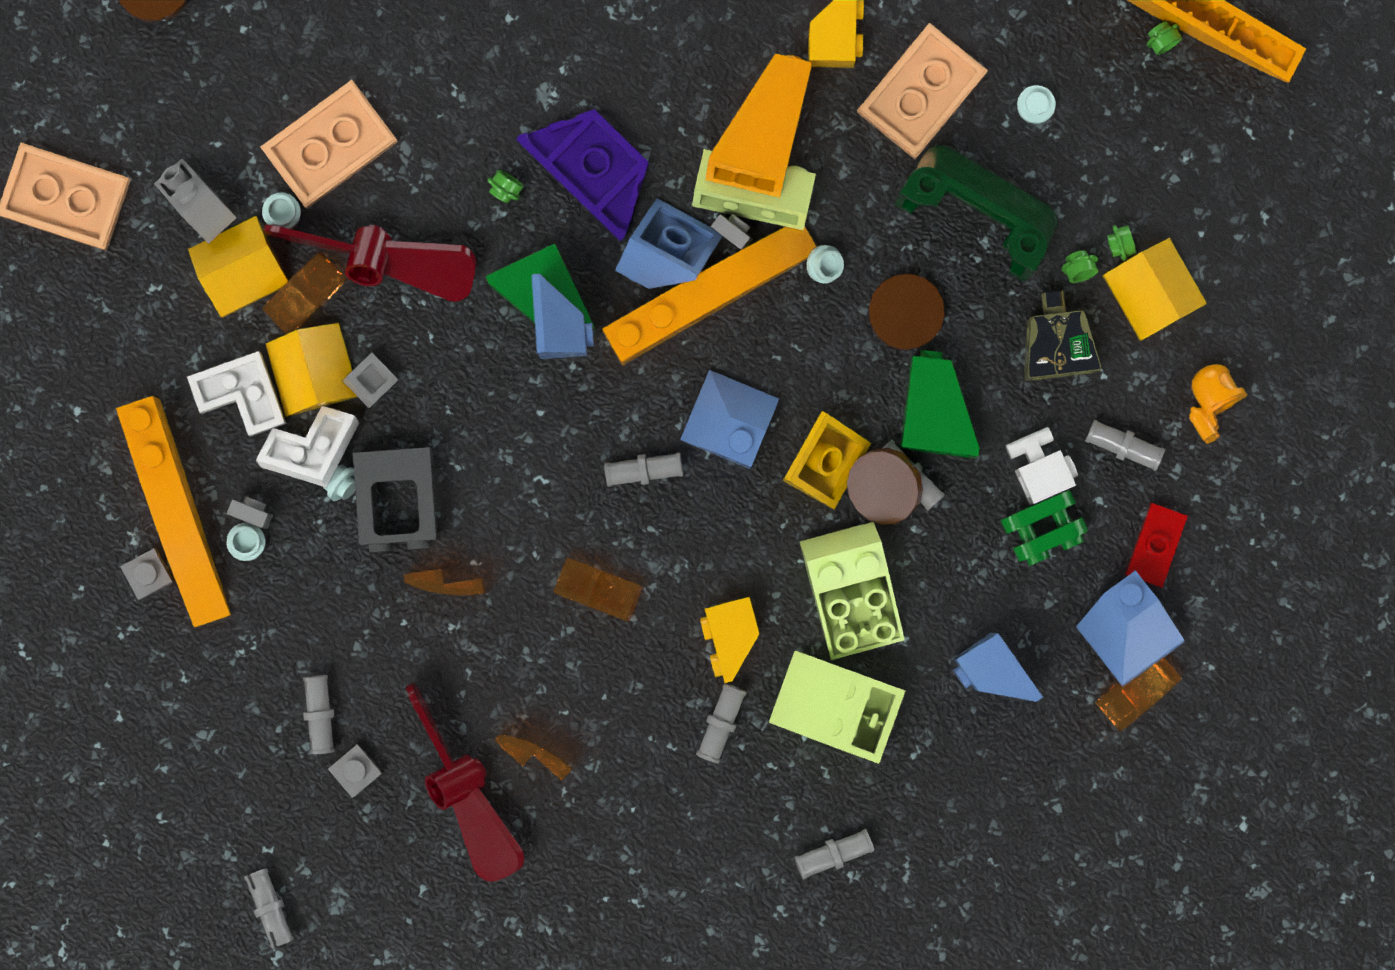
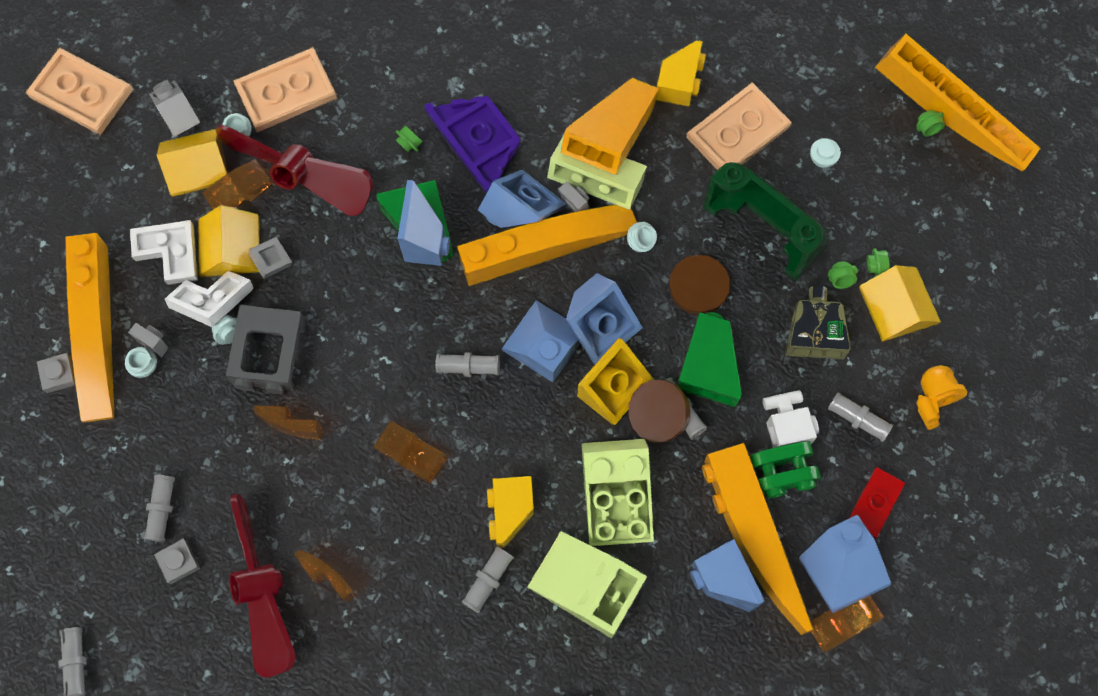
camera: 15 degrees right, 15 degrees down
(793, 381) = (601, 316): none -> medium blue slope
(1014, 600) = (753, 529): none -> light orange slope

